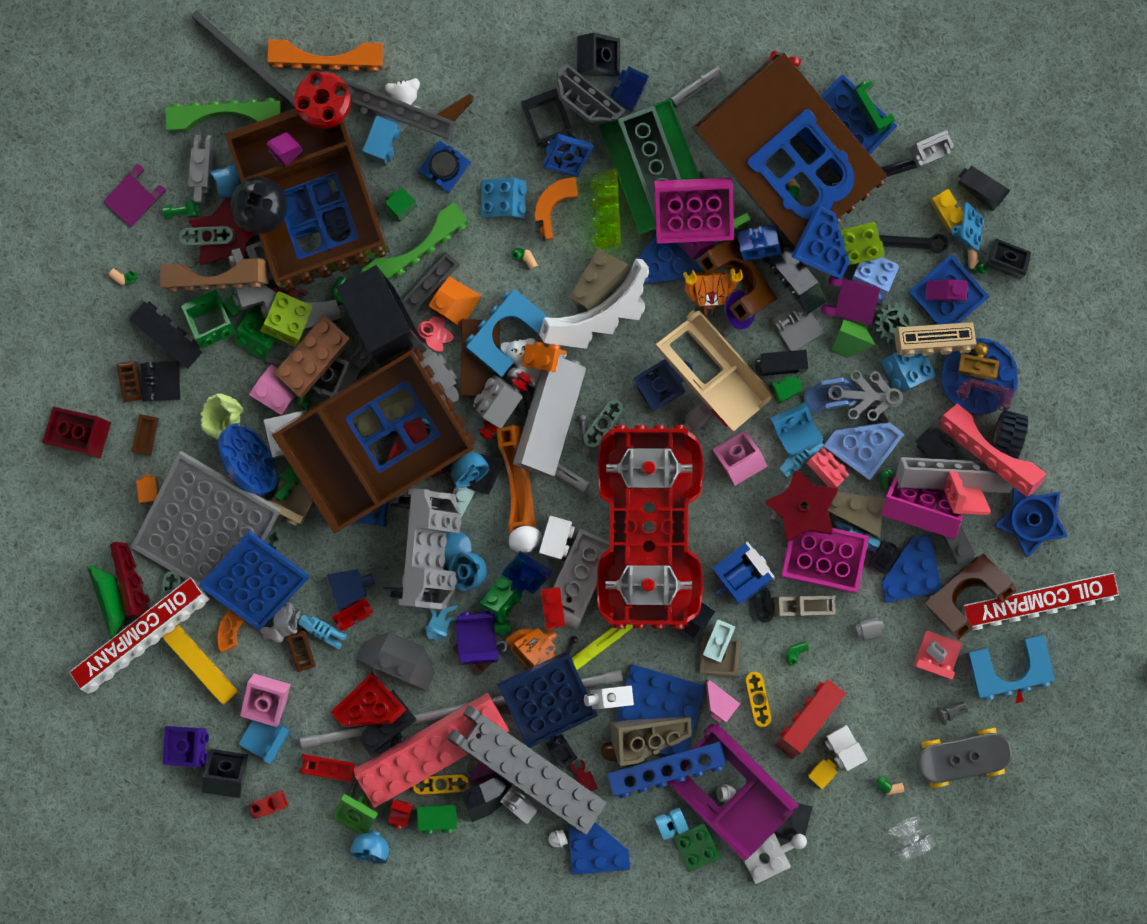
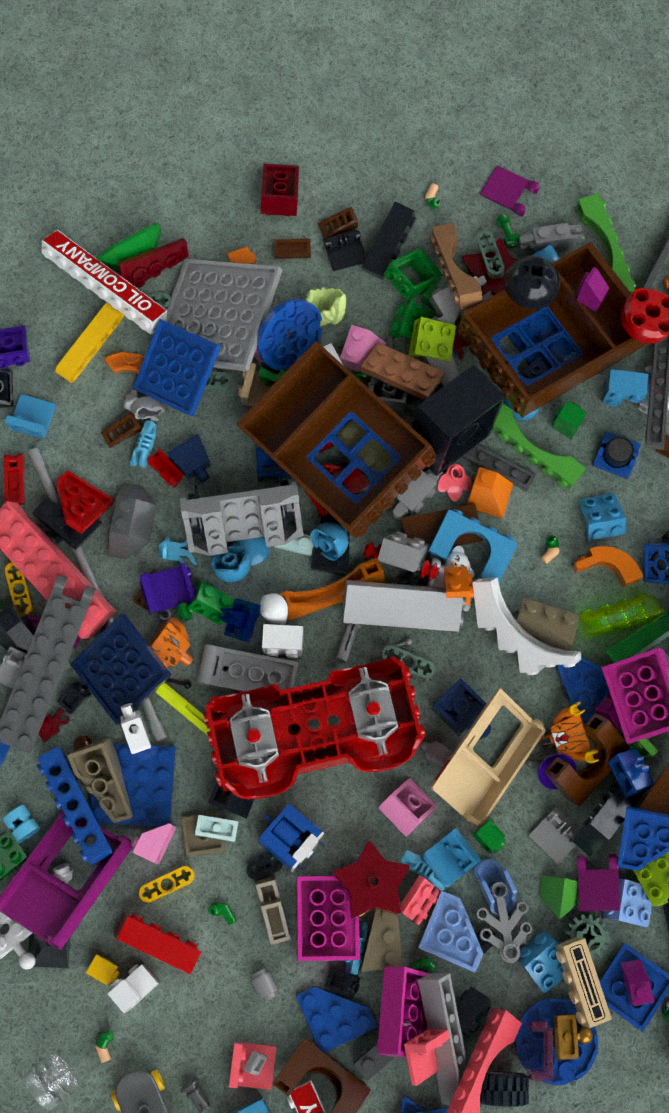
camera: 80 degrees right, 10 degrees down
(265, 700) = (67, 406): bright pink slope -> none
(552, 608) = (210, 649): red brick -> none
(782, 362) = (515, 825): black window -> none

